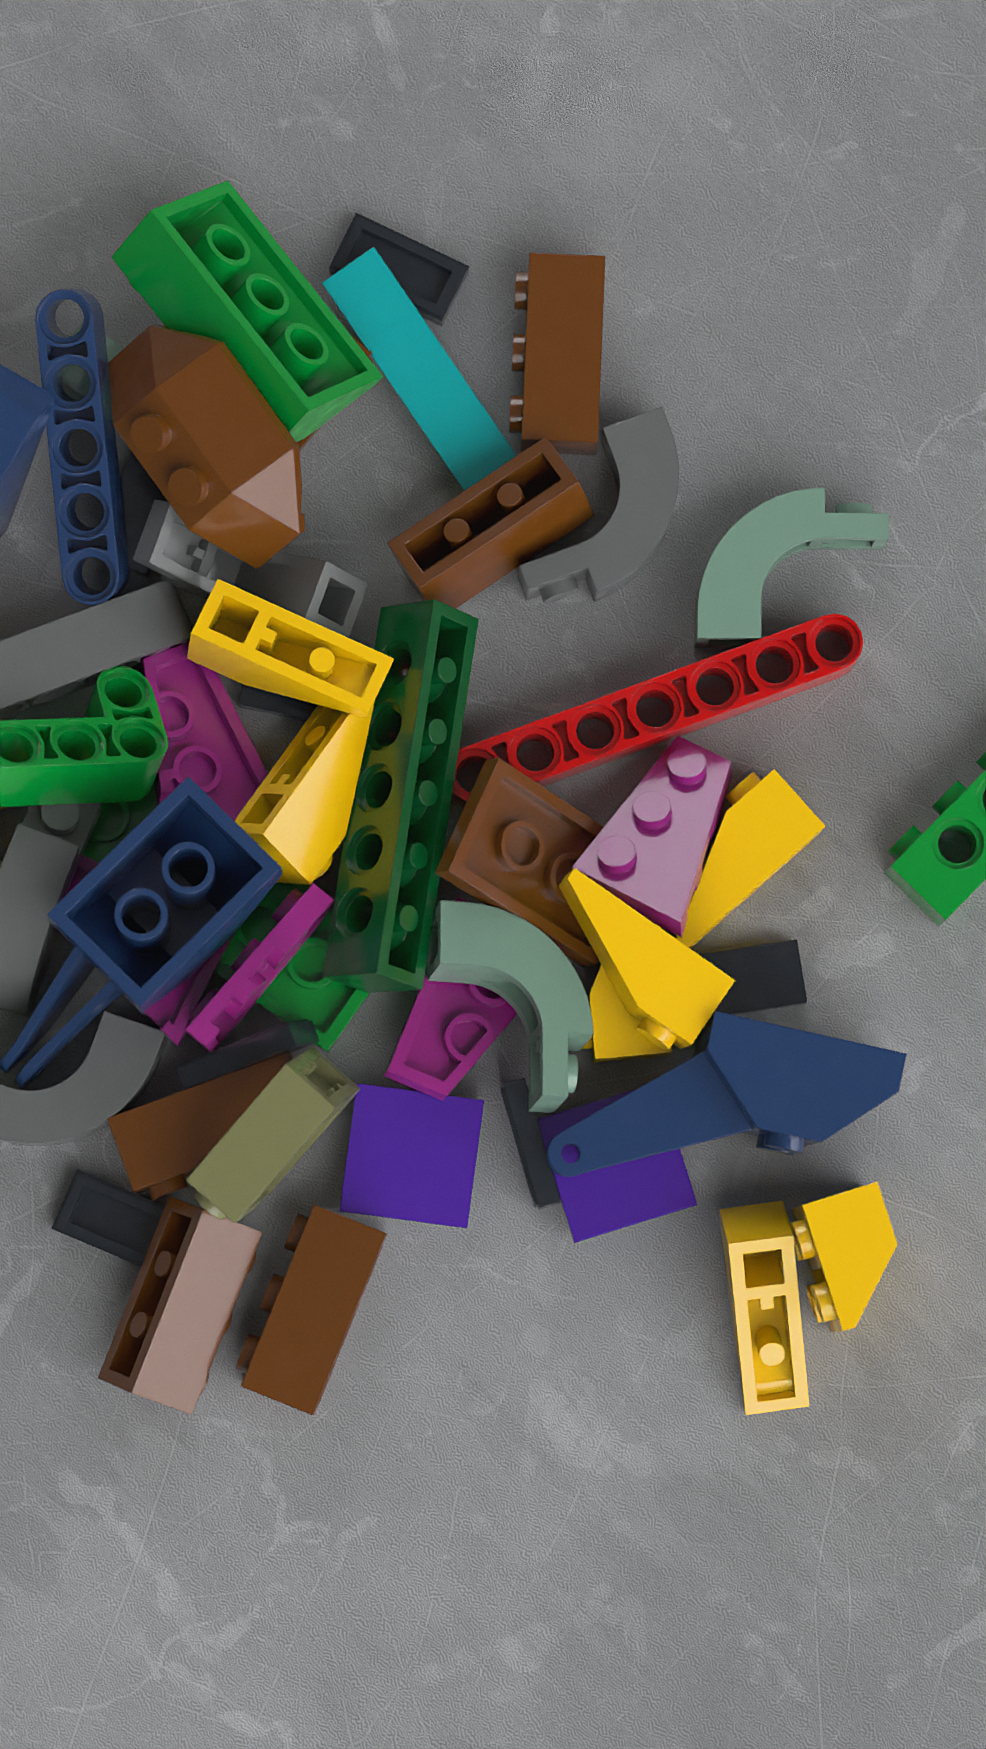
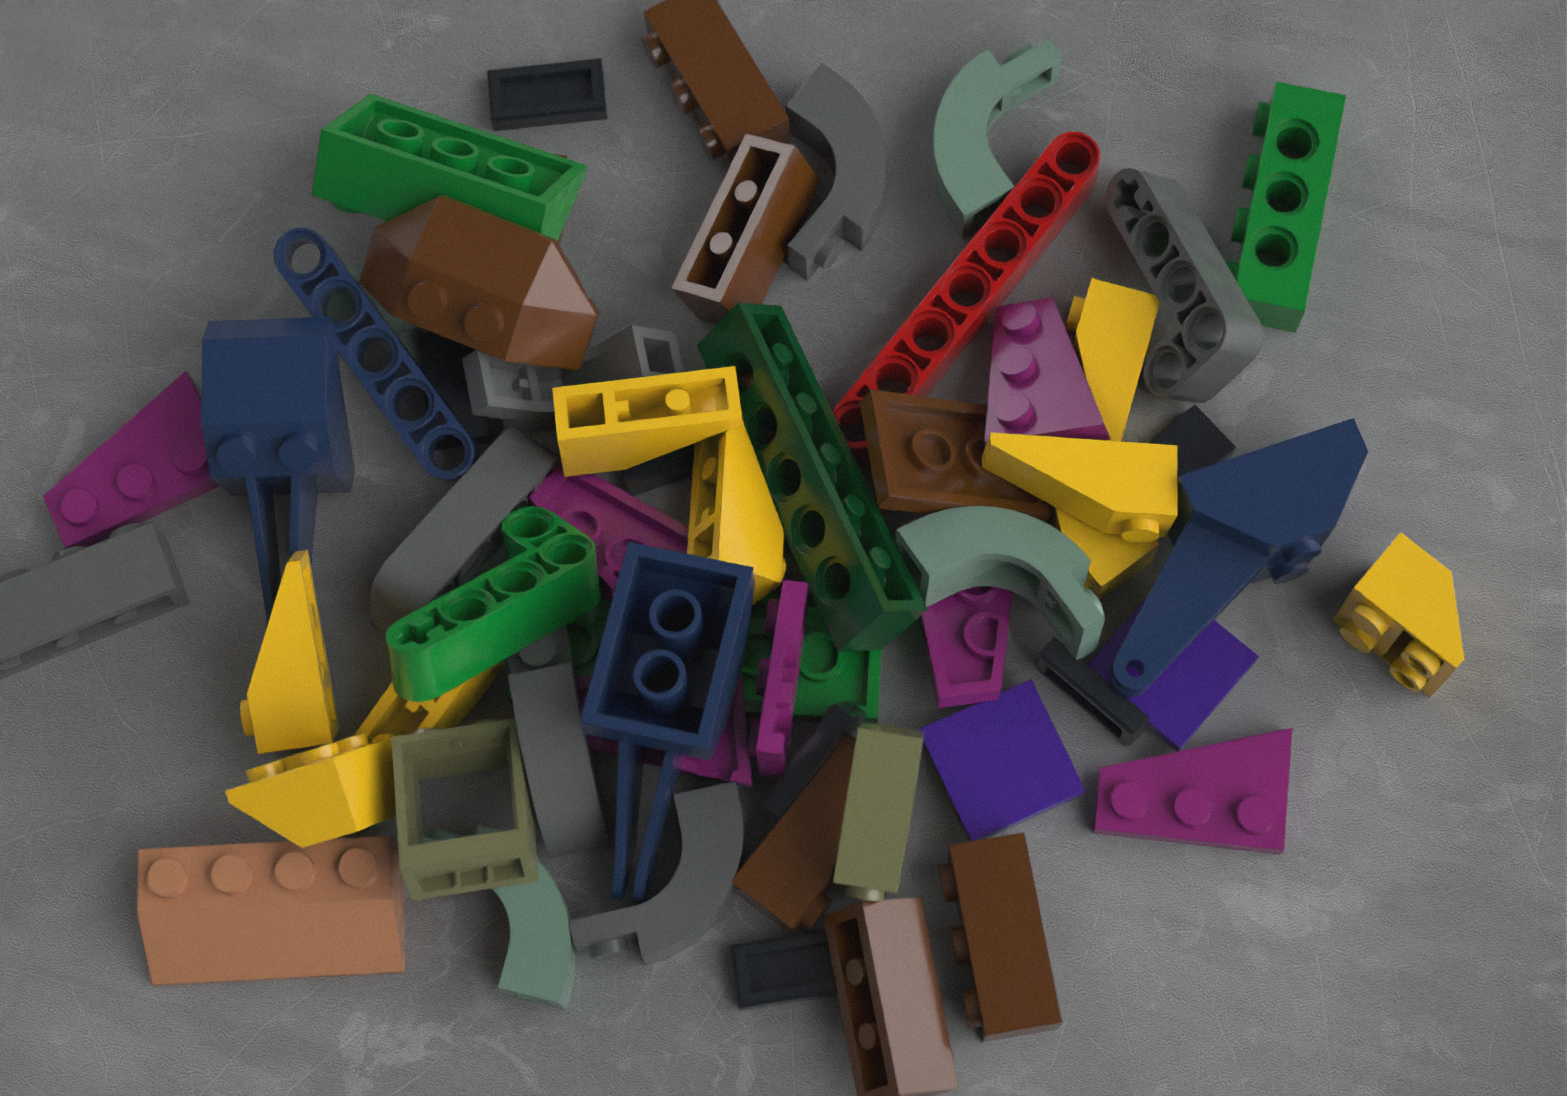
camera: 20 degrees left, 10 degrees down
(419, 368) = (612, 152): teal tile -> none
(570, 1294) = (1202, 796): none -> magenta wing
(765, 1306) = (1367, 703): yellow slope -> none
(860, 826) = (1211, 317): none -> dark grey beam

